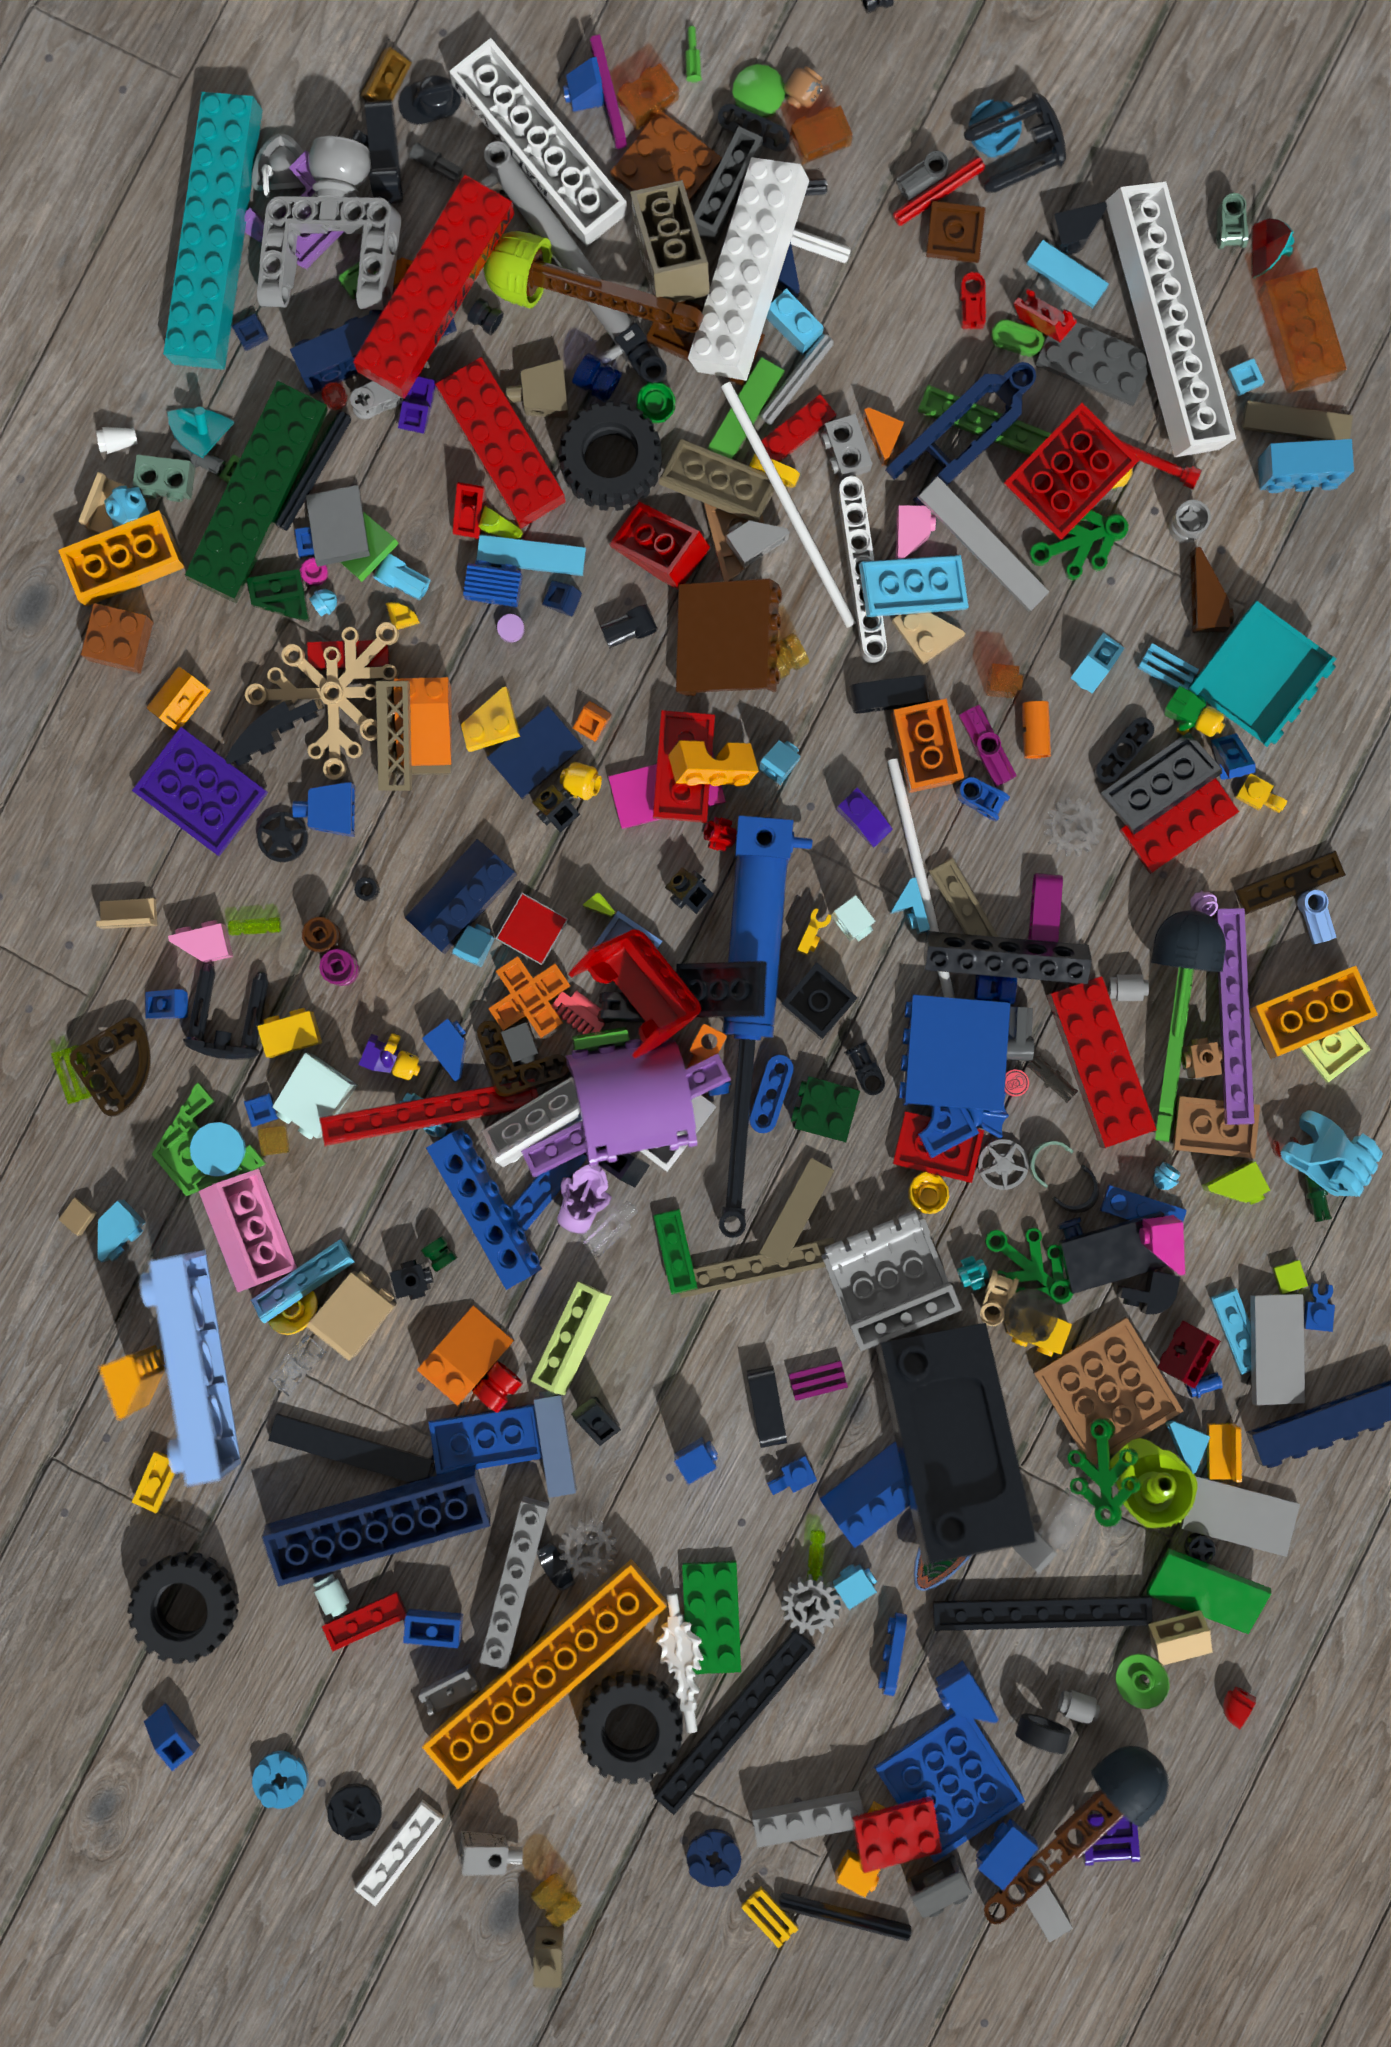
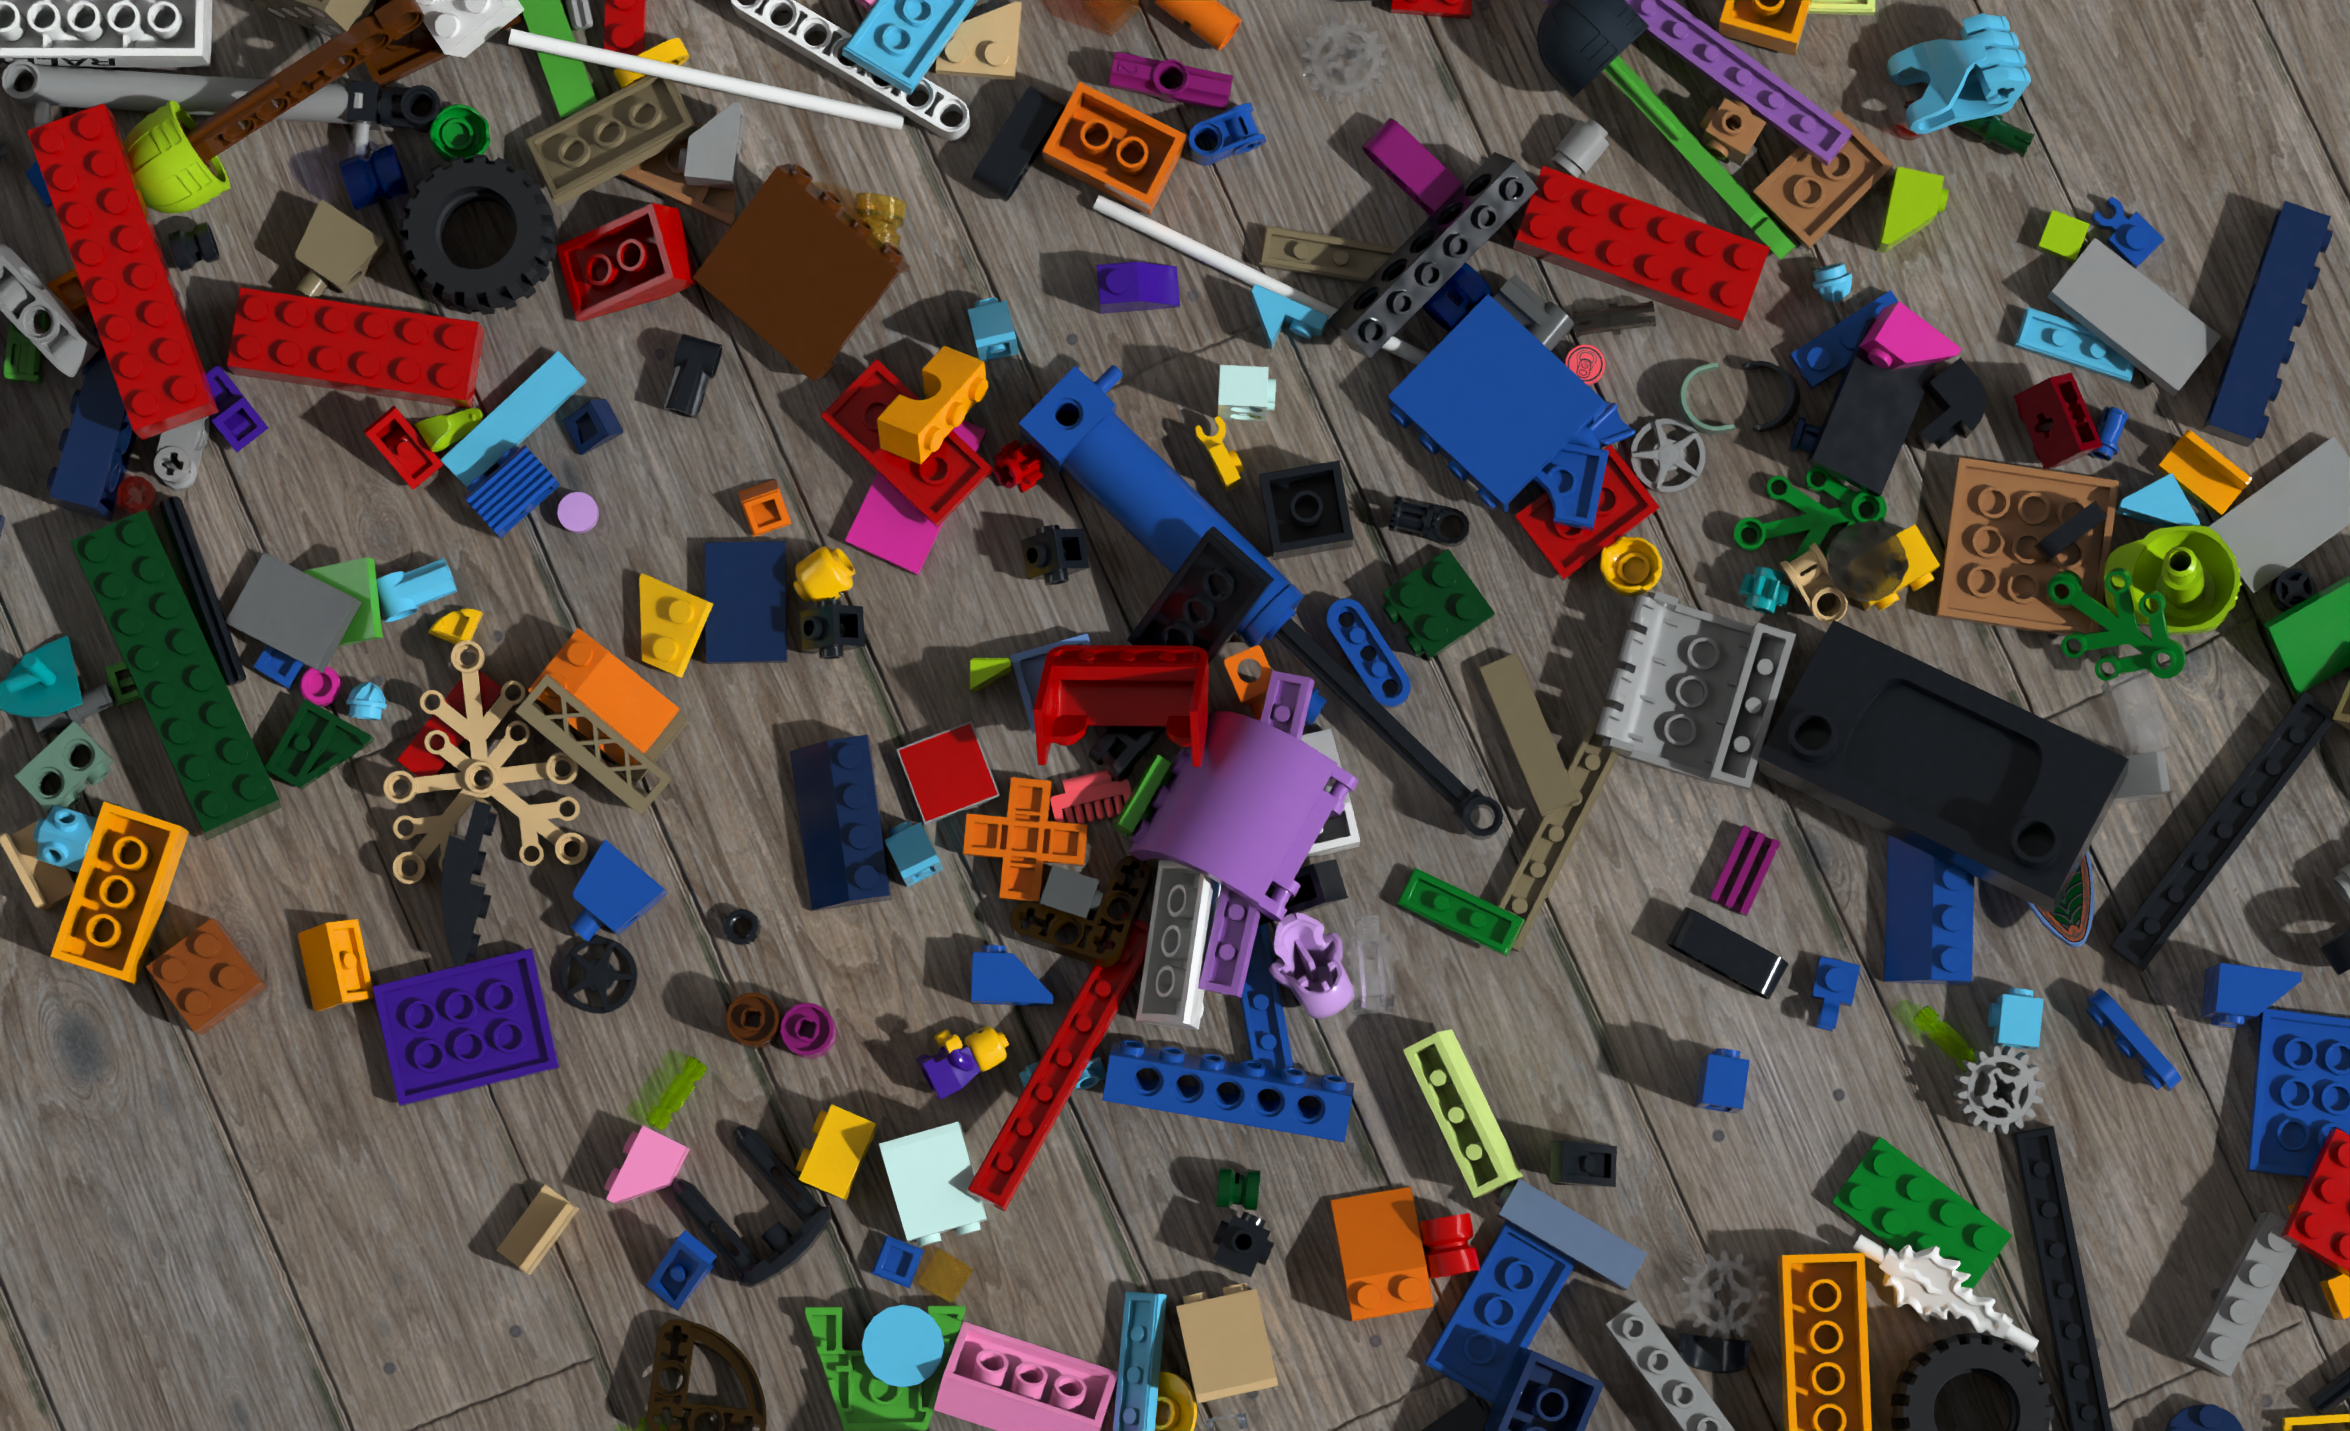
camera: 45 degrees left, 5 degrees down
(1135, 1409) = (2071, 531): none -> black beam

